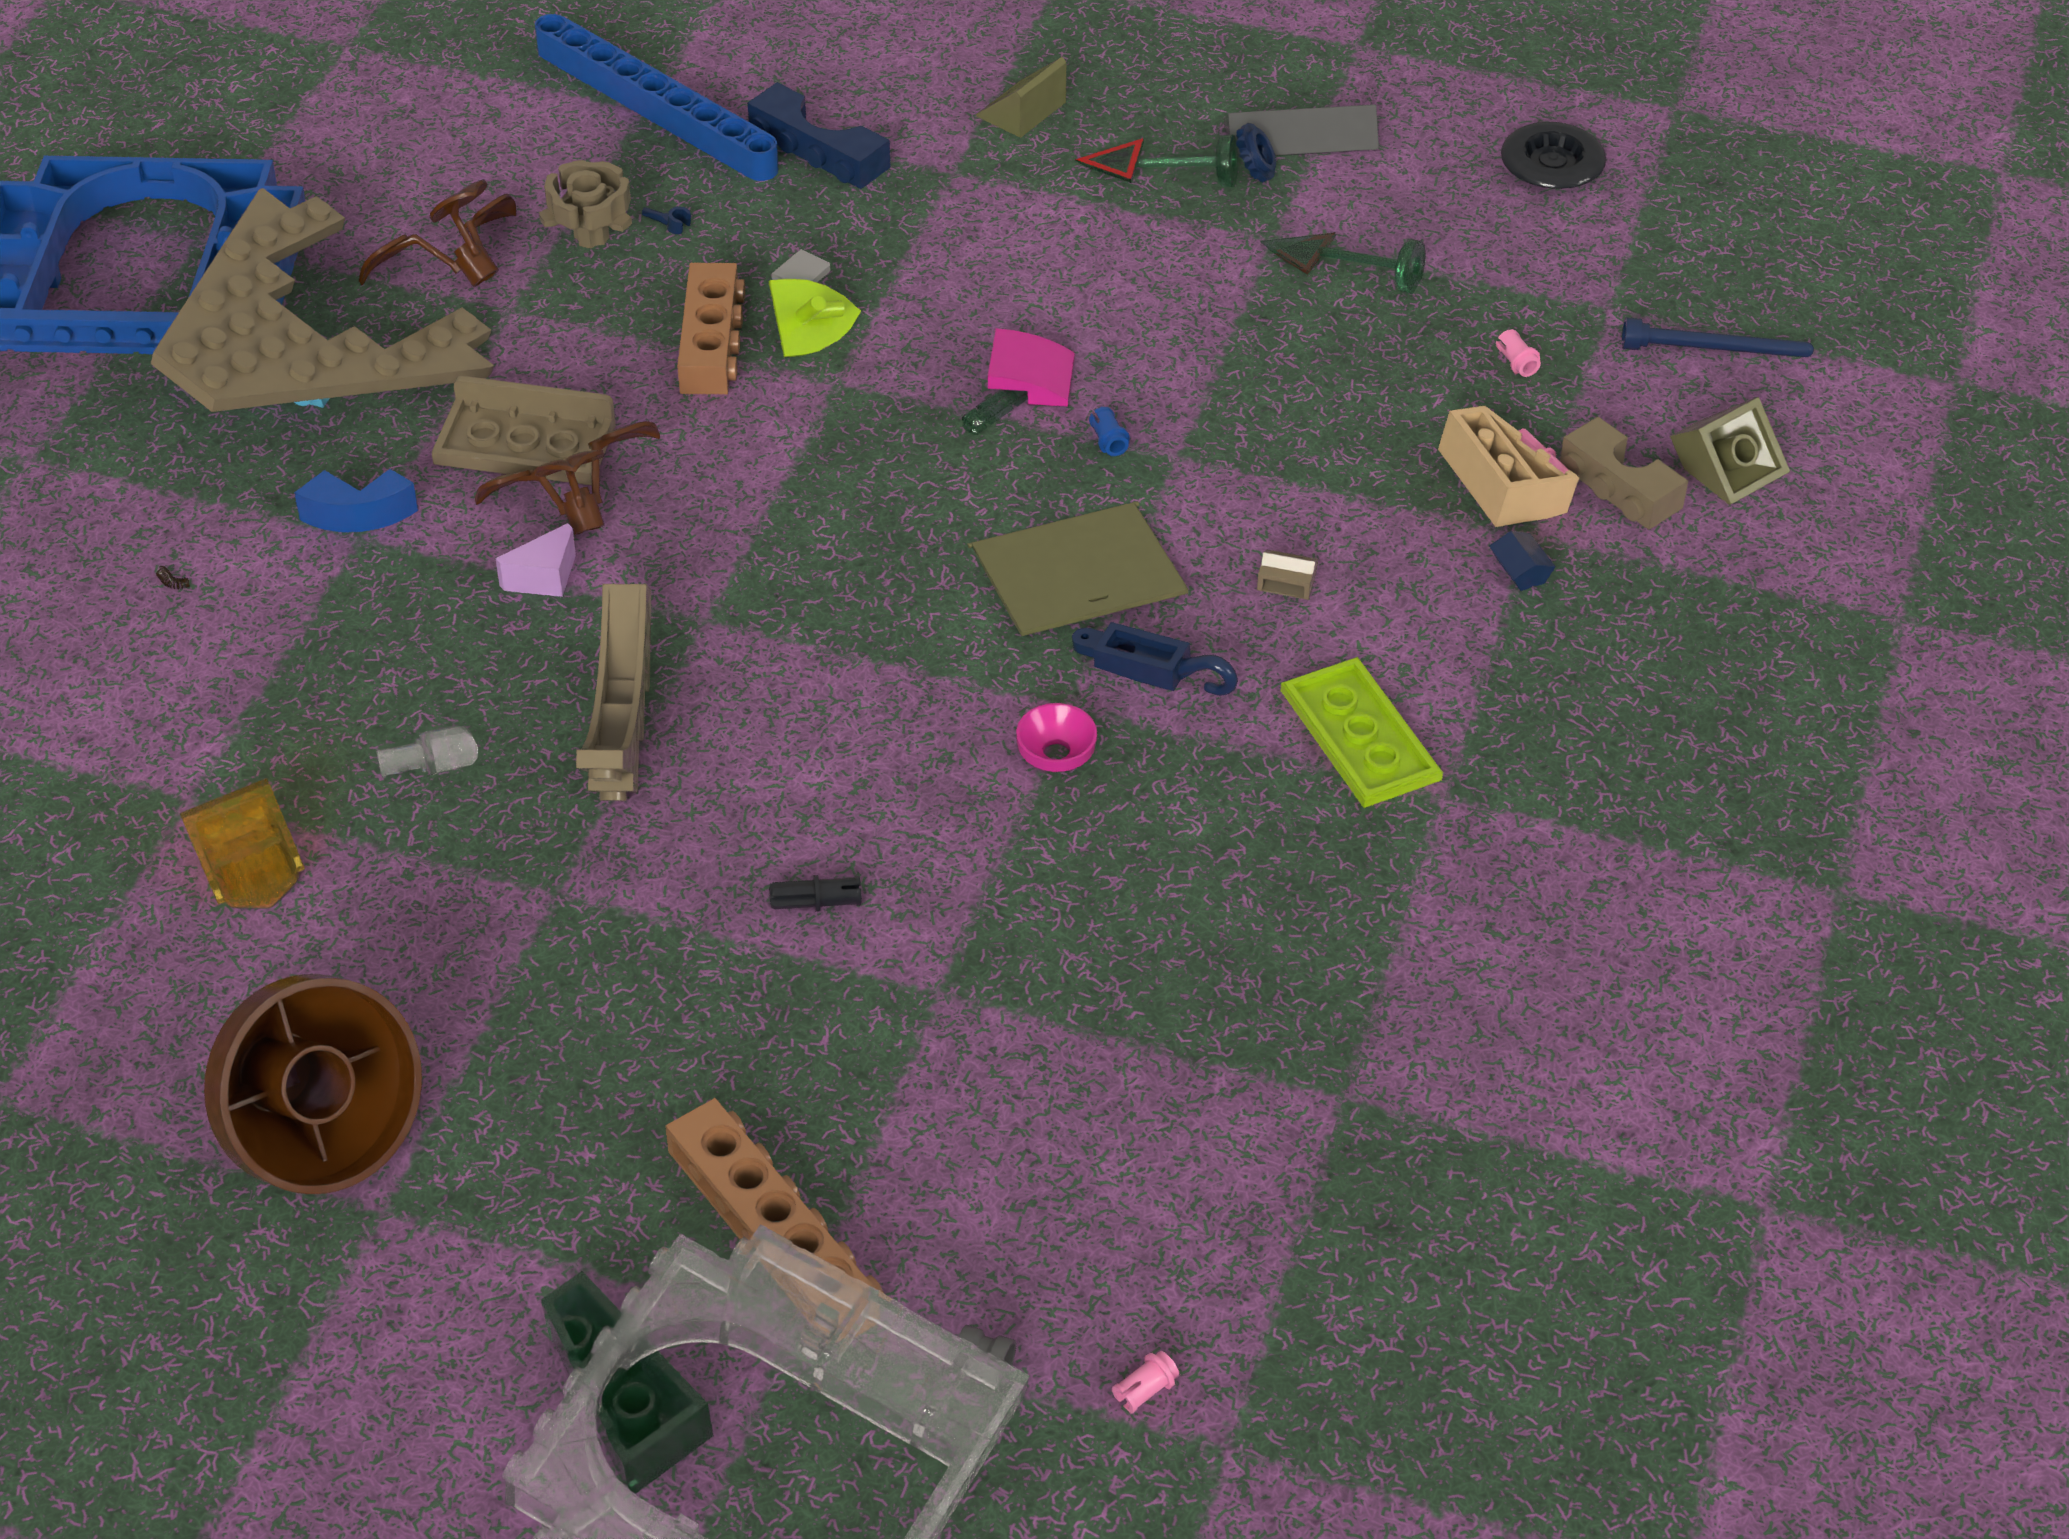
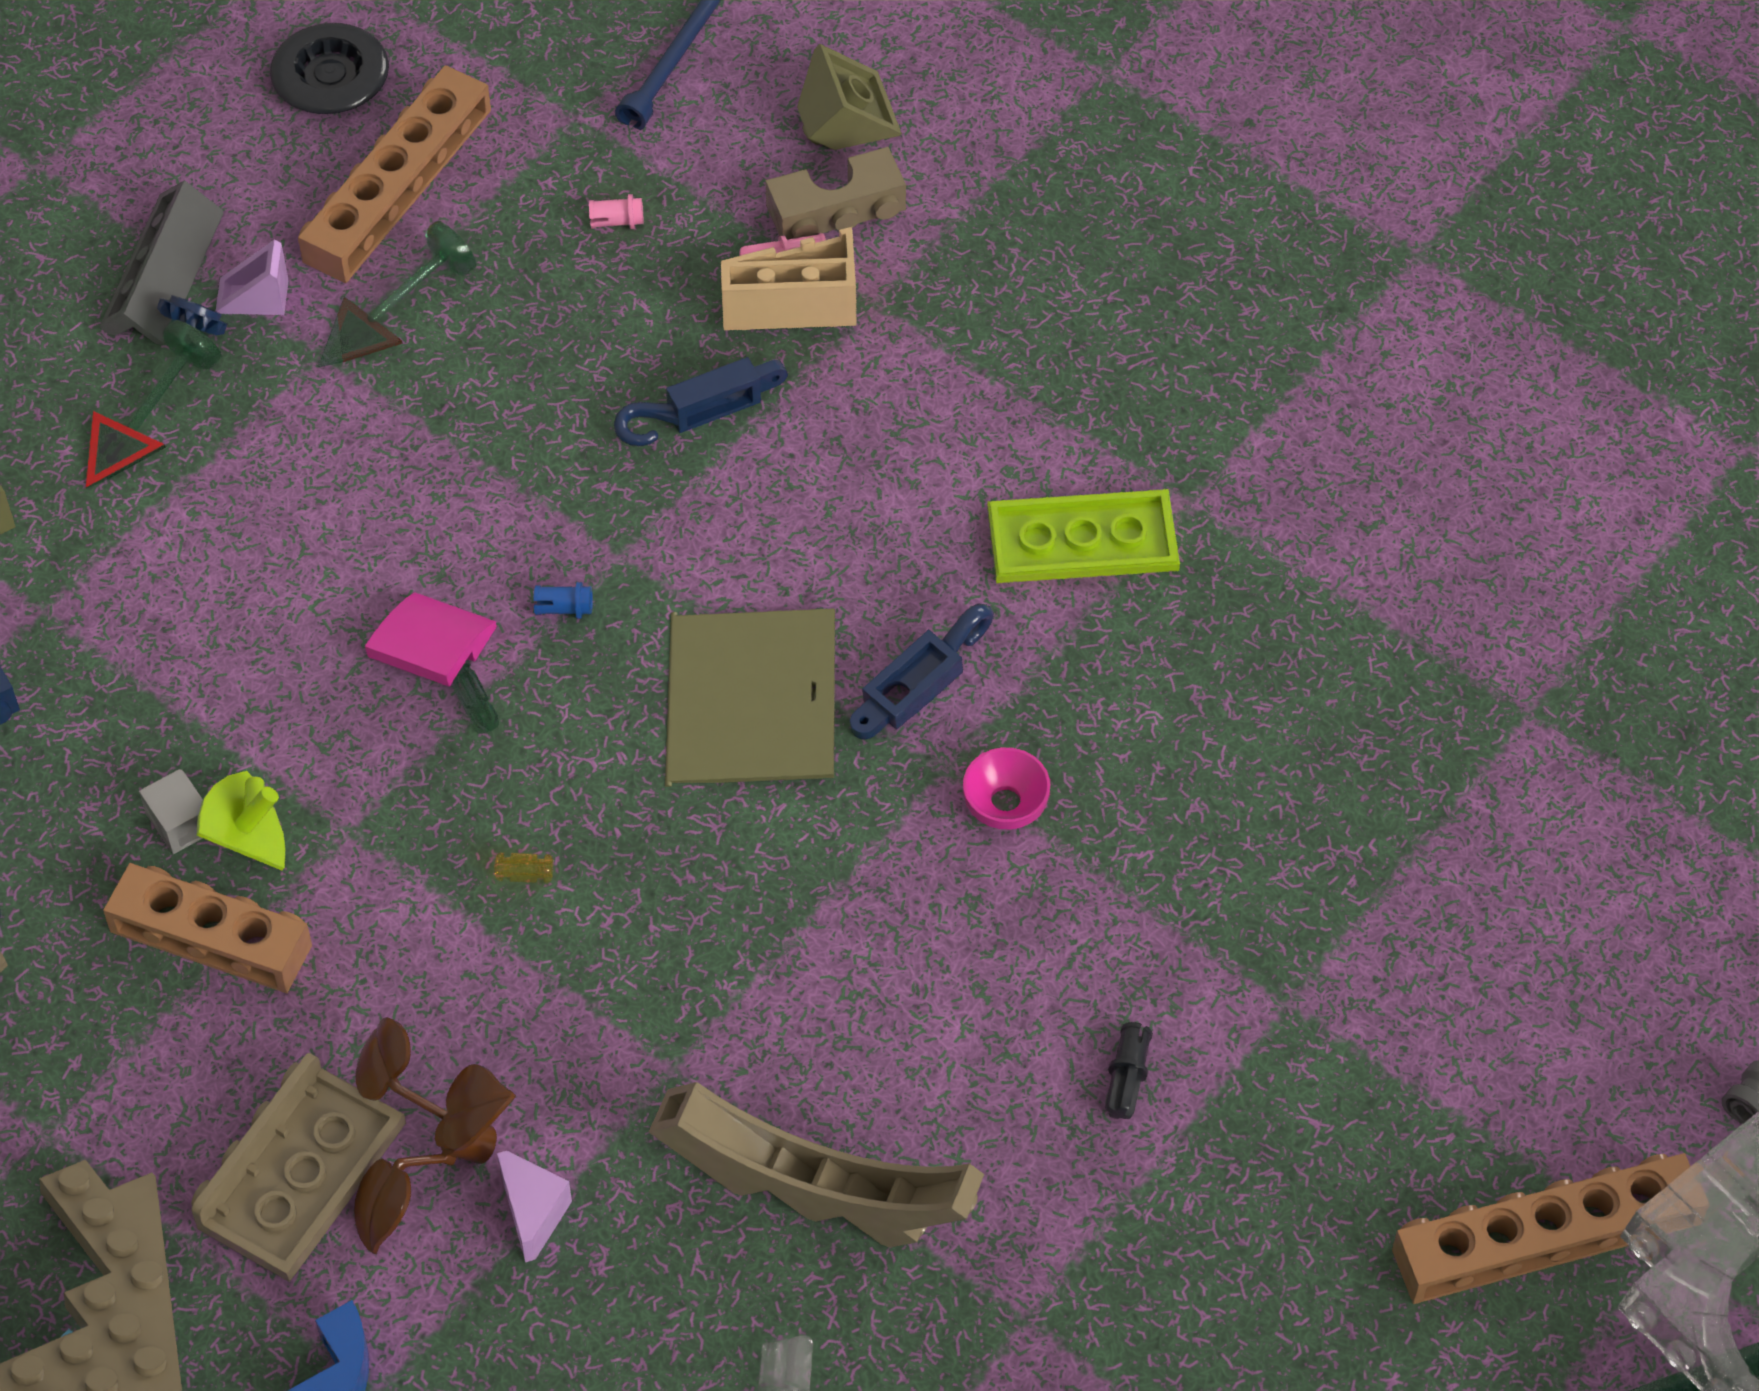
camera: 70 degrees left, 10 degrees up
(847, 482) = (524, 867): none -> clear yellow piece
(1287, 574) = (846, 517): dark tan piece -> none
(1312, 182) = (256, 284): none -> lavender slope
(1356, 453) = (703, 398): none -> dark blue piece
(1470, 218) = (394, 174): none -> medium nougat brick
(1522, 559) = (915, 320): dark blue piece -> none

